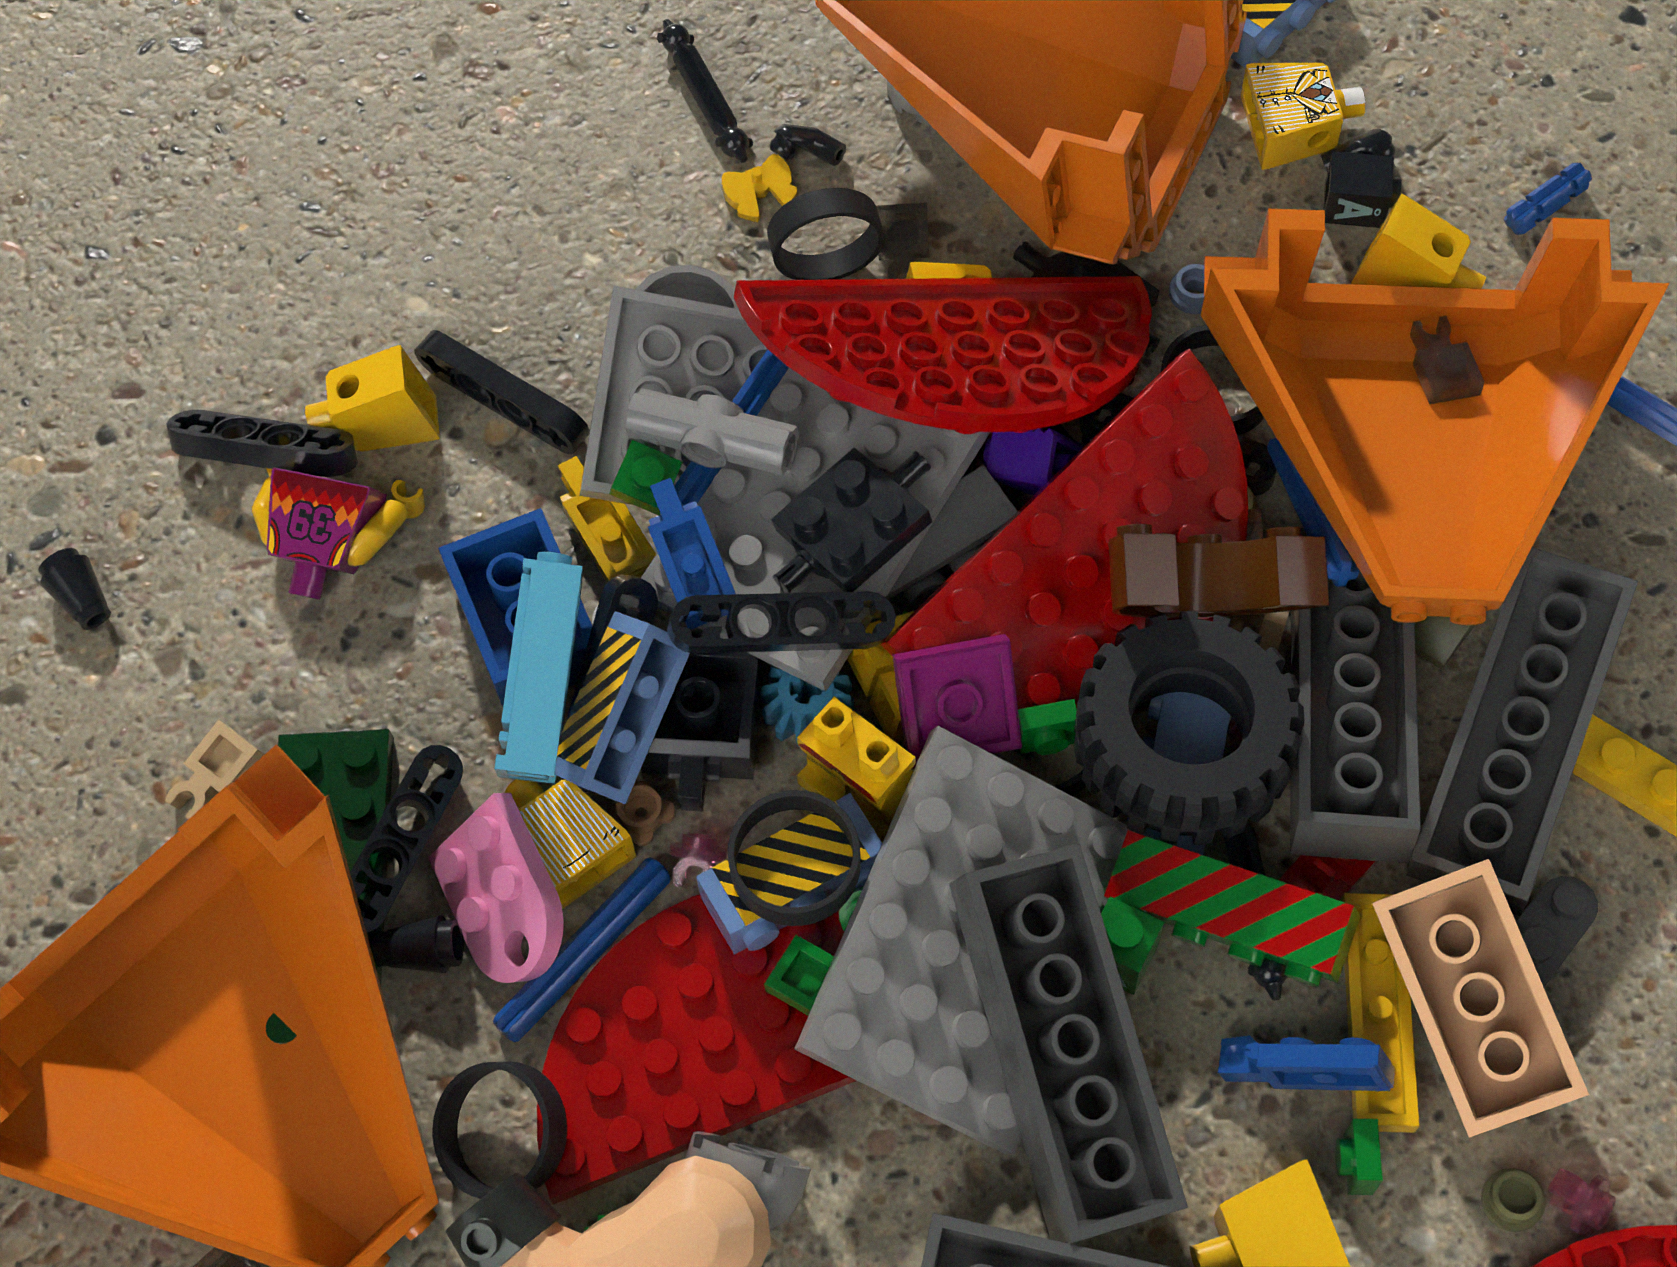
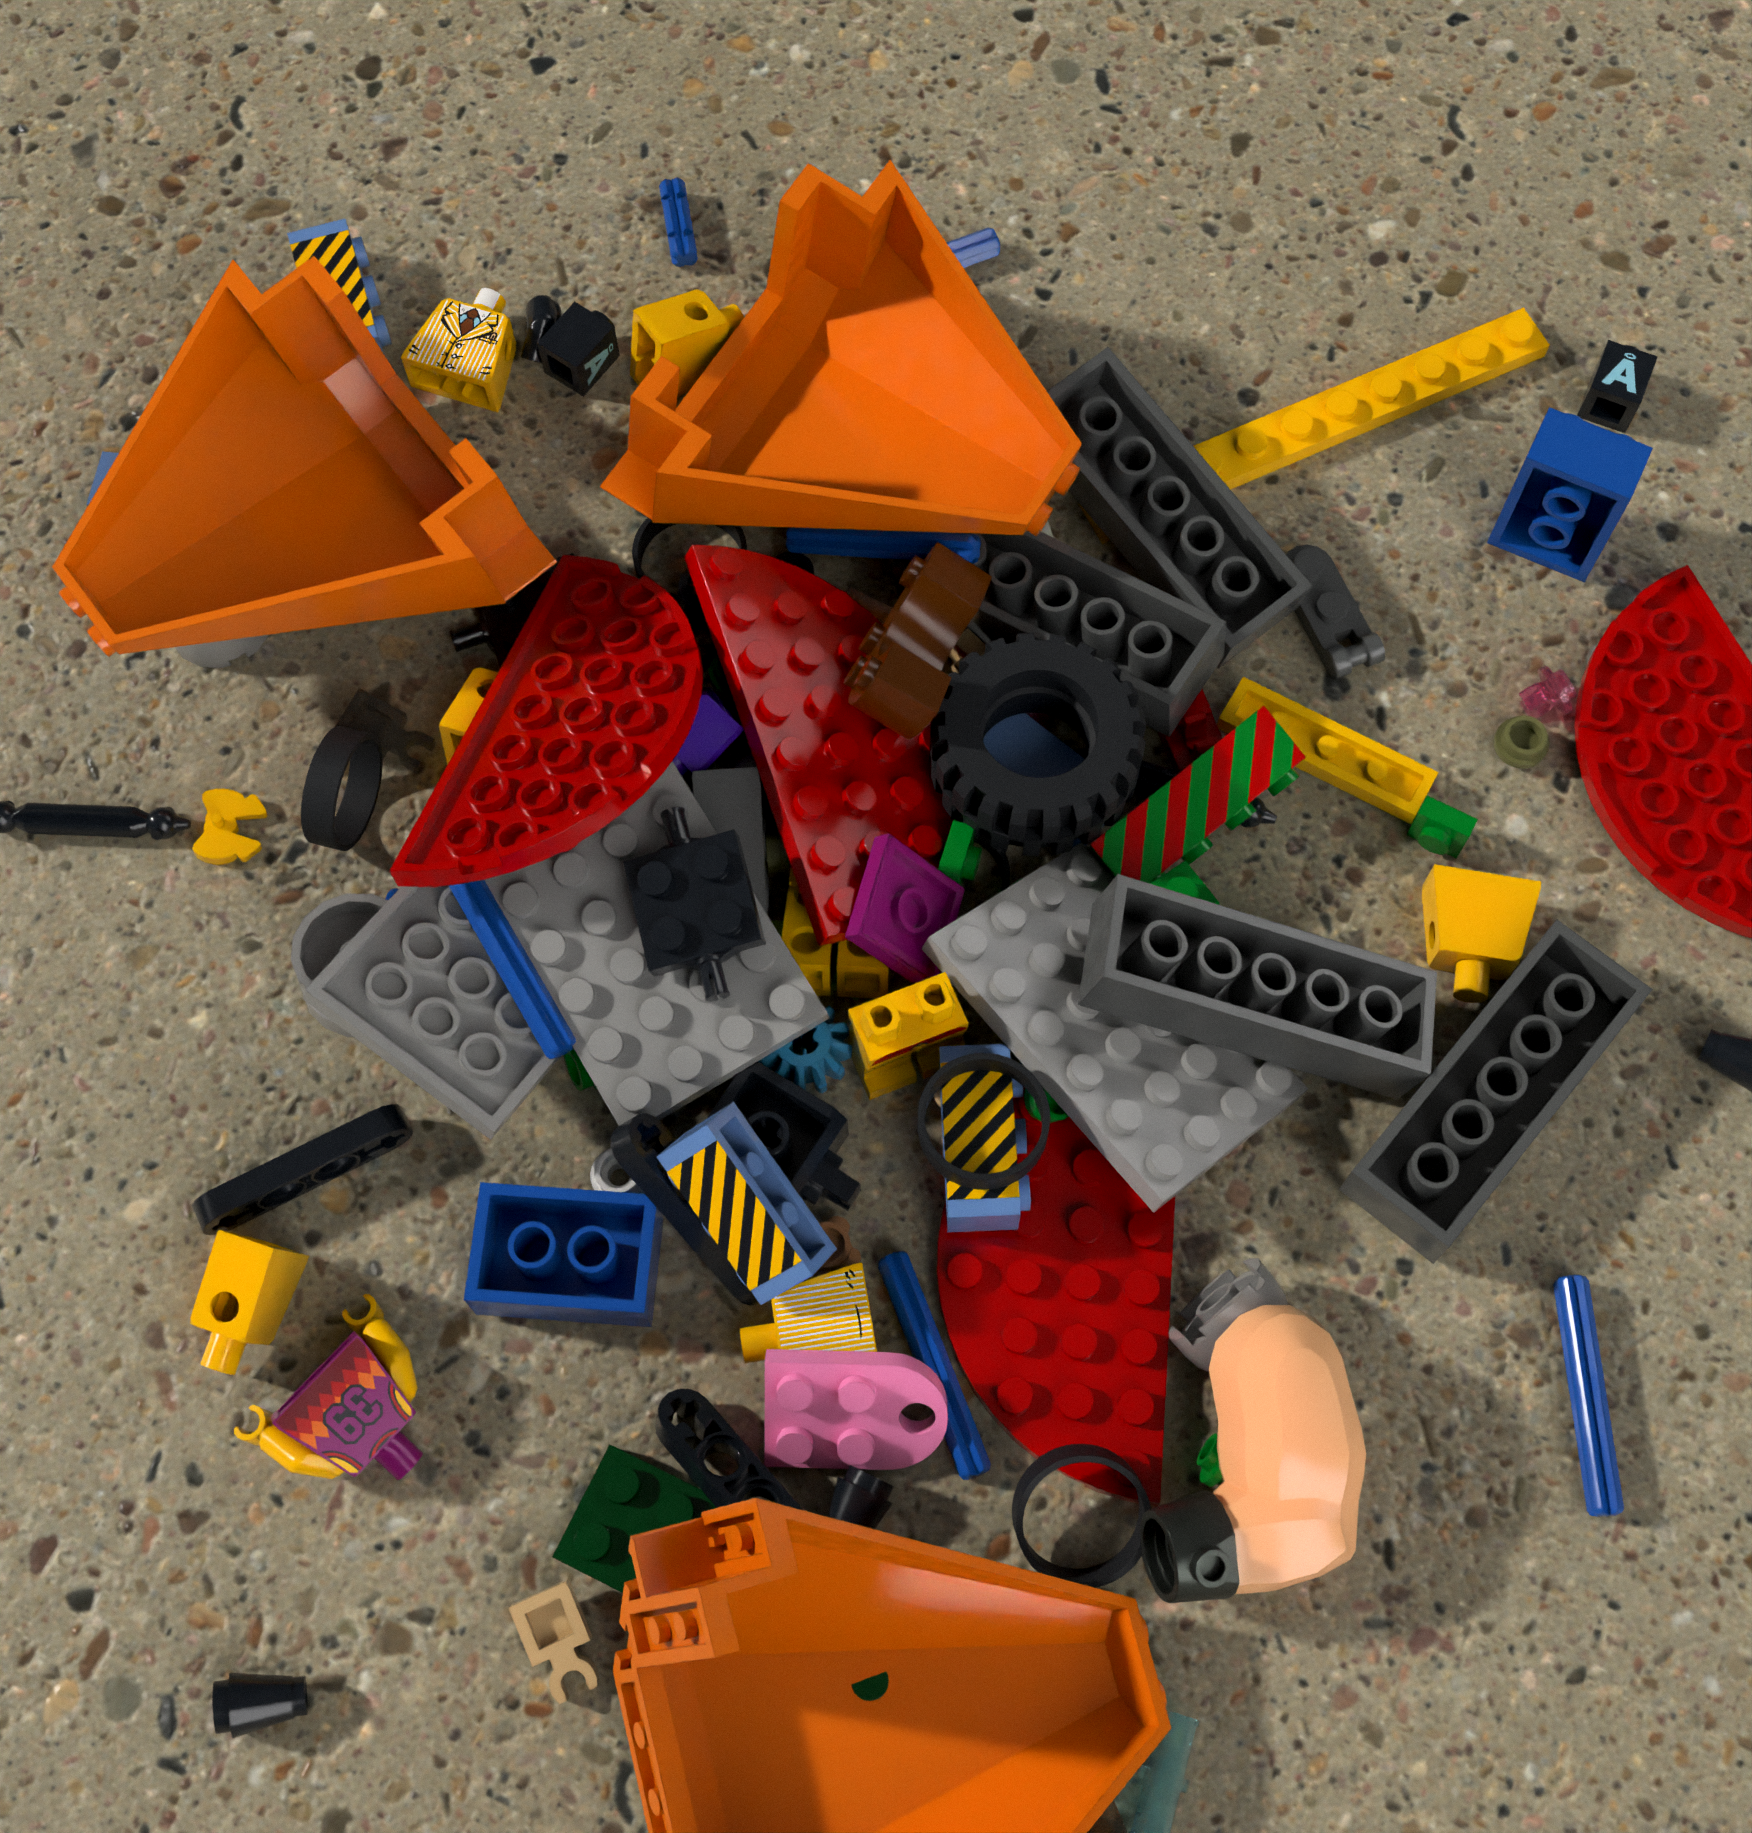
camera: 65 degrees left, 5 degrees up
(262, 442) = (153, 1499): black beam -> none
(539, 668) = (679, 1253): medium azure door -> none
(604, 528) = (524, 1143): yellow hinge -> none
(639, 471) = (519, 1066): green plate -> none
(687, 549) = (640, 1062): blue hinge -> none
(696, 851) = (898, 1213): clear pink plate -> none
(712, 431) = (522, 978): light grey piece -> none
(782, 630) = (765, 1012): black beam -> none
(799, 974) = (1079, 1175): green plate -> none
(810, 139) = (208, 755): black arm -> none
(1188, 278) = (585, 514): sand blue plate -> none
(1306, 1065) = (1347, 828): blue hinge -> none
(1444, 368) = (796, 383): clear smoke plate -> none
(1480, 998) = (1372, 663): light nougat brick -> none

